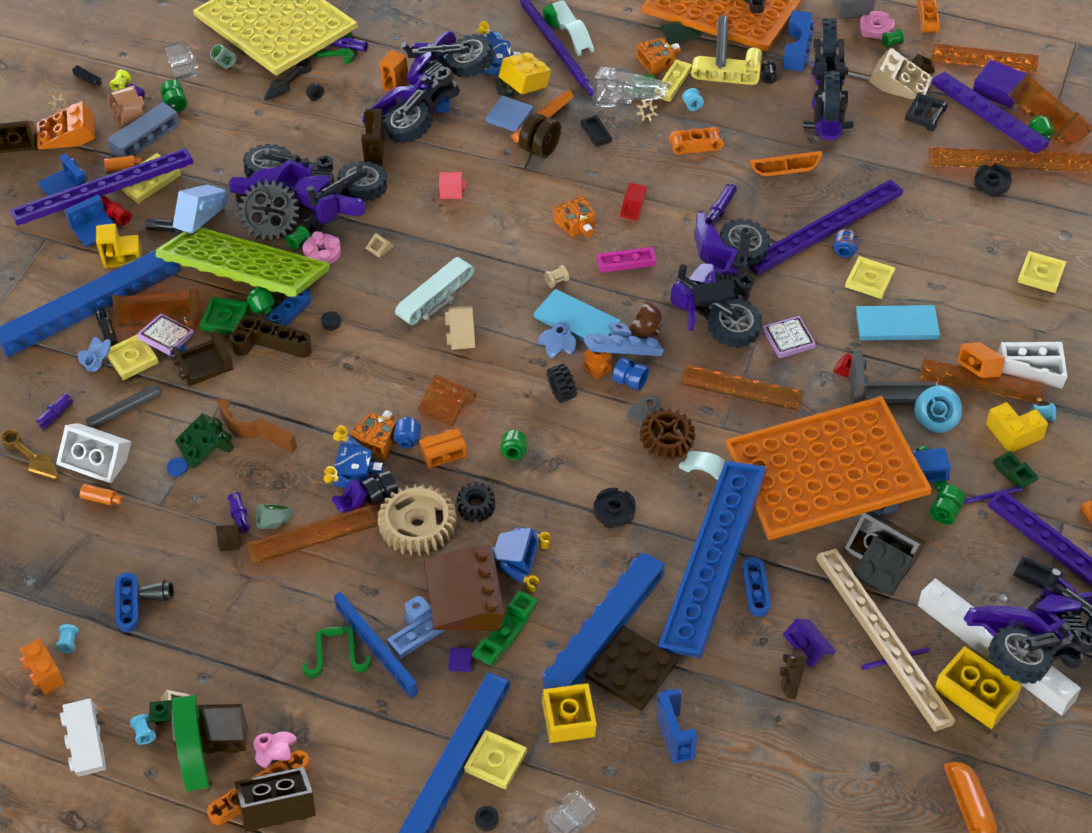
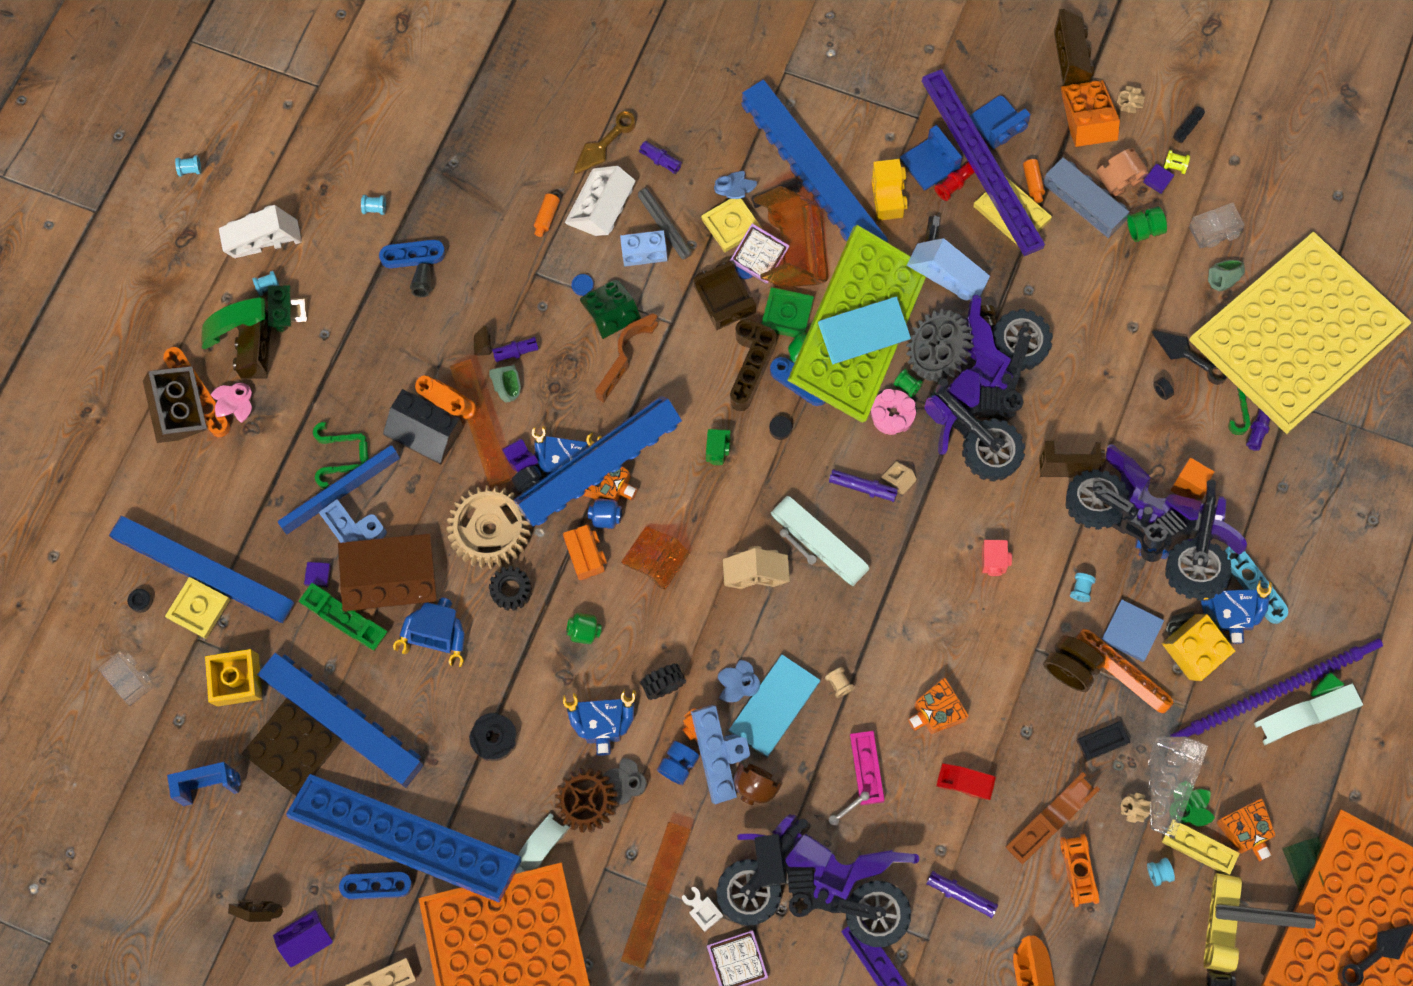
camera: 95 degrees right, 20 degrees up
(41, 665) = (341, 186): orange brick -> none
(148, 415) = (643, 248): none -> light blue brick
(252, 253) = (864, 330): none -> medium azure tile
(286, 556) = (445, 397): none -> orange piece
(313, 579) = (422, 426): none -> black slope
(347, 359) = (717, 446): none -> green brick
(363, 425) = (597, 461): none -> blue brick
(389, 259) = (863, 485): none -> dark purple pin
(476, 137) = (1082, 587): none -> medium azure bush
(595, 425) = (601, 720): none -> blue torso
(664, 159) = (1051, 819): none -> dark orange piece
(669, 281) = (834, 820): none -> light grey hinge
(751, 356) = (704, 911): none -> white plate

